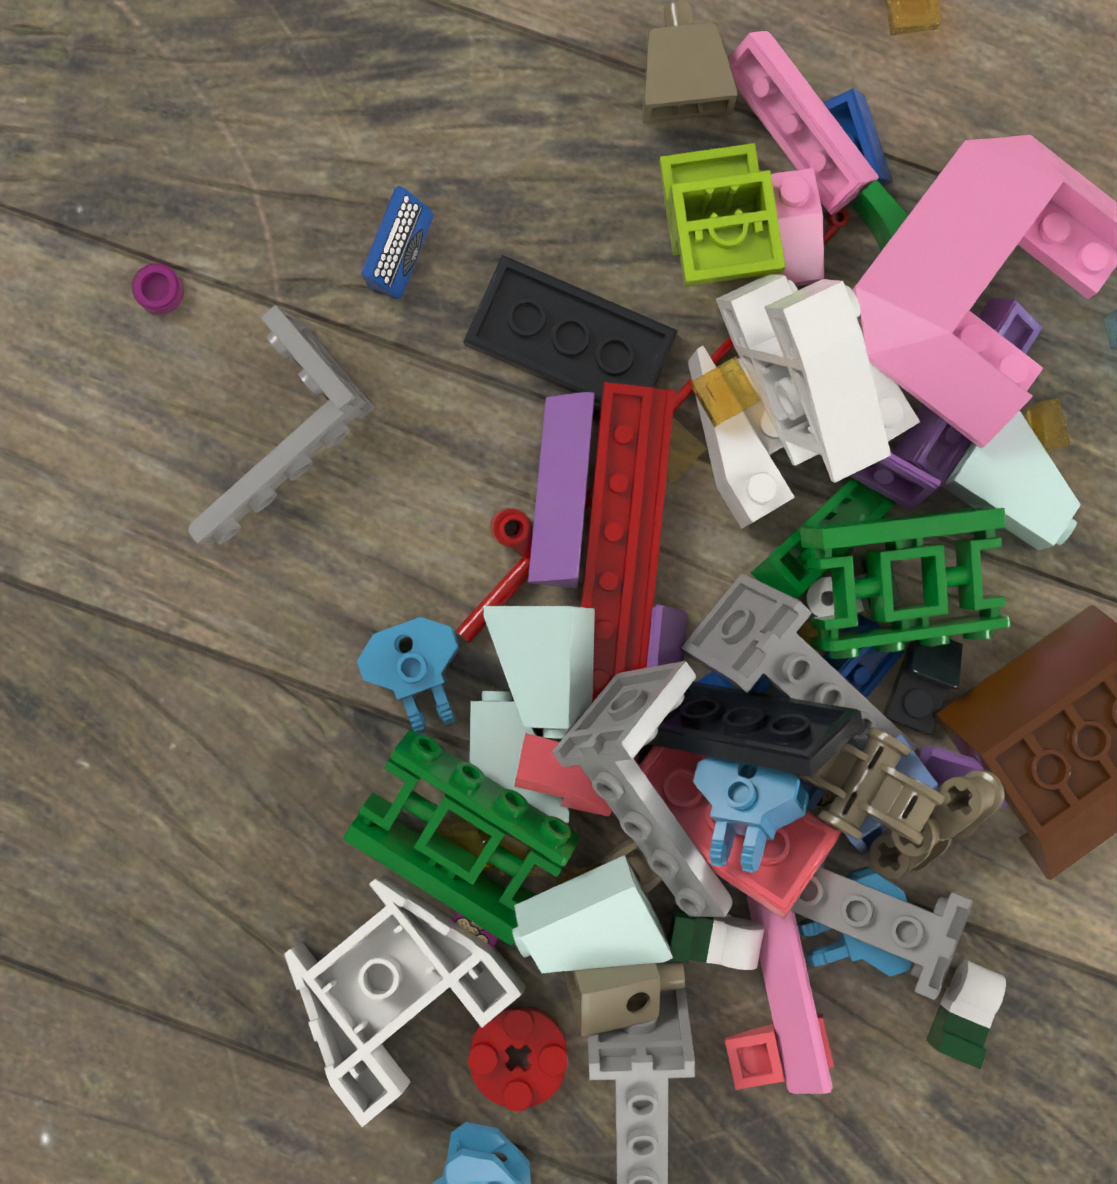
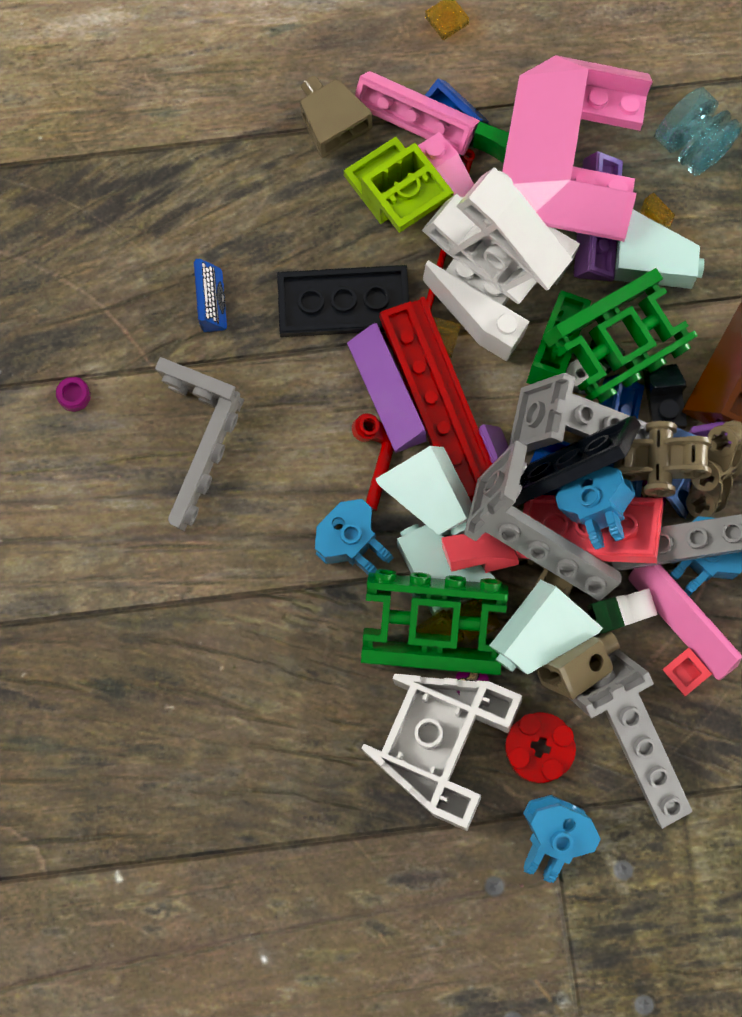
camera: 25 degrees left, 10 degrees down
(724, 392) = (455, 279): clear yellow tile -> none
(898, 481) = (578, 285): medium lavender slope -> none

